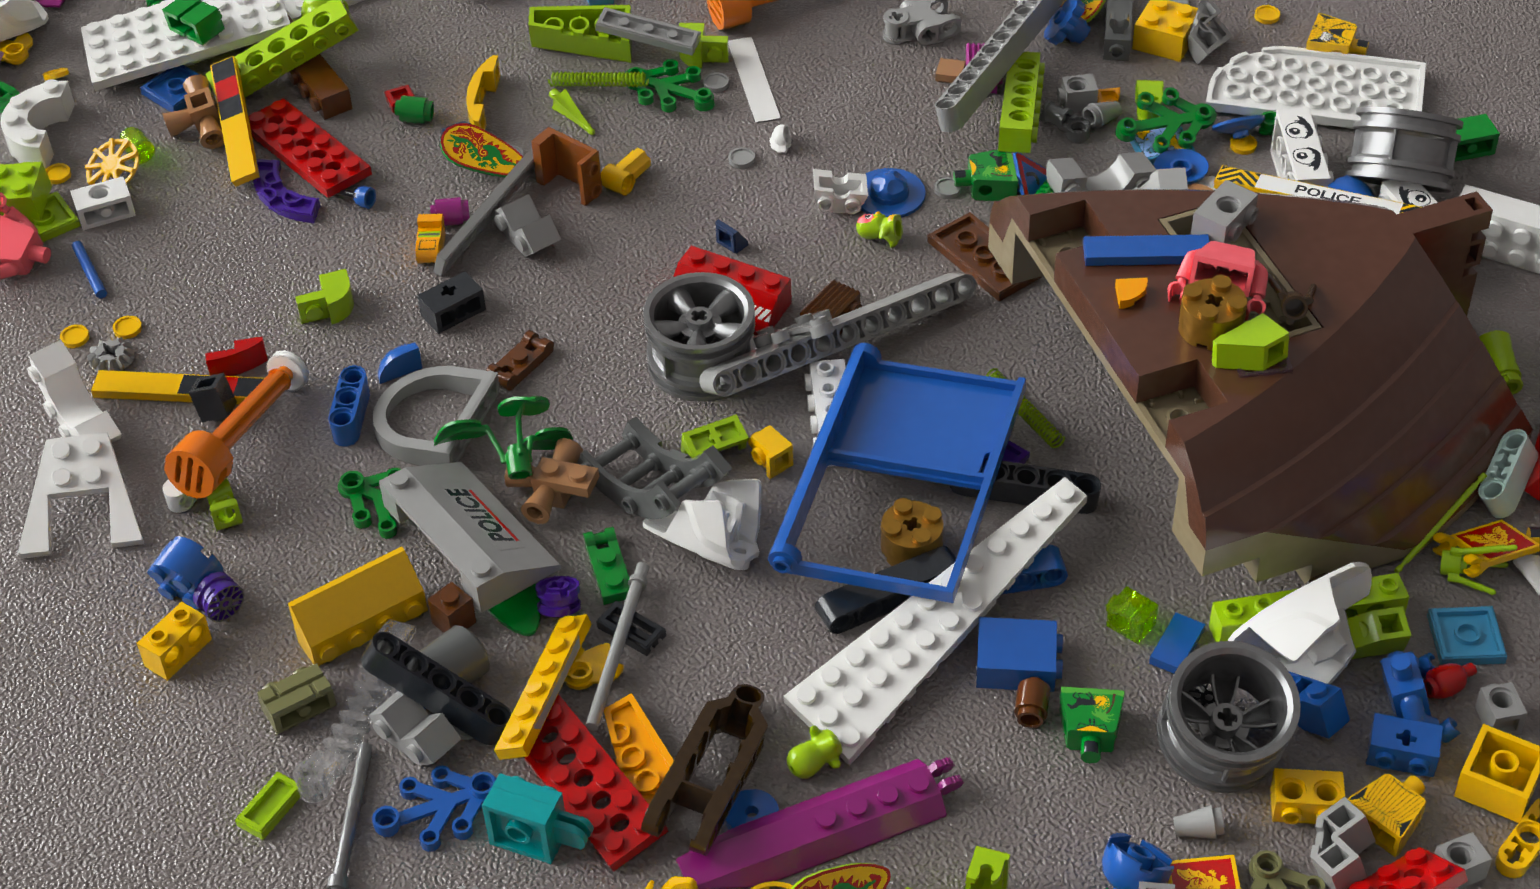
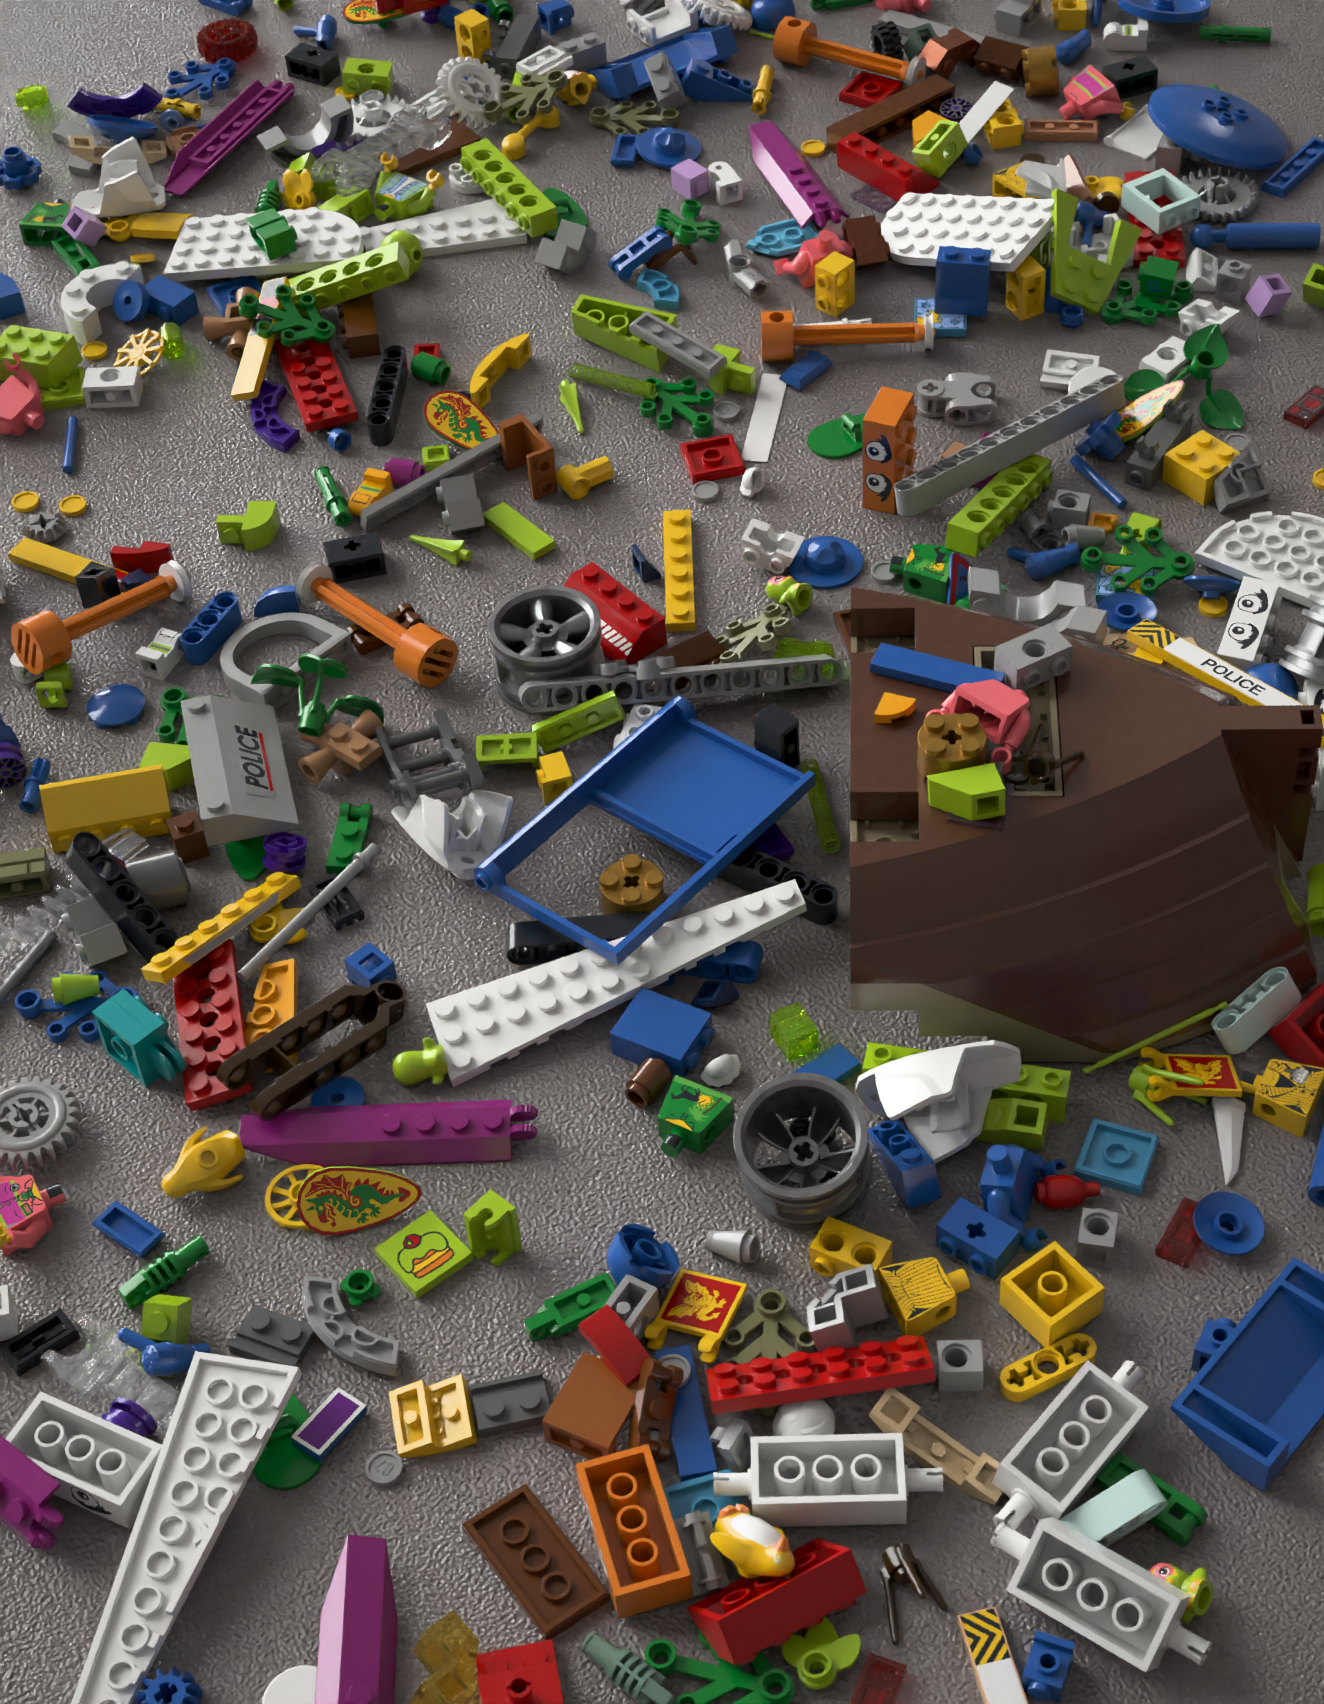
camera: 25 degrees right, 0 degrees up
(57, 38) = (159, 225): none -> yellow slope
(84, 117) = (131, 301): none -> blue piece
(110, 107) = (171, 301): none -> blue brick
(245, 382) = (133, 580): none -> dark blue slope
(260, 607) = (38, 776): none -> blue axle
(285, 97) = (316, 328): none -> green plant
(294, 506) = (116, 706): none -> blue dish
(313, 440) = (162, 652): none -> white leg
(387, 538) = (175, 762): none -> lime slope
(389, 144) = (387, 395): none -> black beam
(397, 255) = (335, 502): none -> green pin
(427, 791) = (74, 987): none -> lime cone
(469, 189) = (435, 456): none -> lime tile
(537, 271) = (451, 550): none -> lime piece
(579, 372) = (419, 651): none -> orange piece
(593, 237) = (518, 531): none -> lime tile
(710, 679) = (377, 968): none -> blue brick
(730, 127) = (712, 458): none -> red tile
(762, 232) = (678, 571): none -> yellow plate
(766, 28) = (806, 370): none -> blue tile
(768, 392) = (579, 721): none -> lime tile
(839, 76) = (838, 437): none -> green shield
(875, 254) = (756, 629): none -> olive plant
(908, 77) = (888, 447): none -> orange brick
(913, 275) = (793, 647): none -> clear neon green hinge
(958, 351) = (777, 735): none -> black brick
(1037, 603) = (715, 993): none -> dark blue slope
(1082, 63) = (1104, 487): none -> blue bar
(1084, 143) = (1046, 562): none -> blue piece
(1089, 671) = (721, 1070): none -> white piece

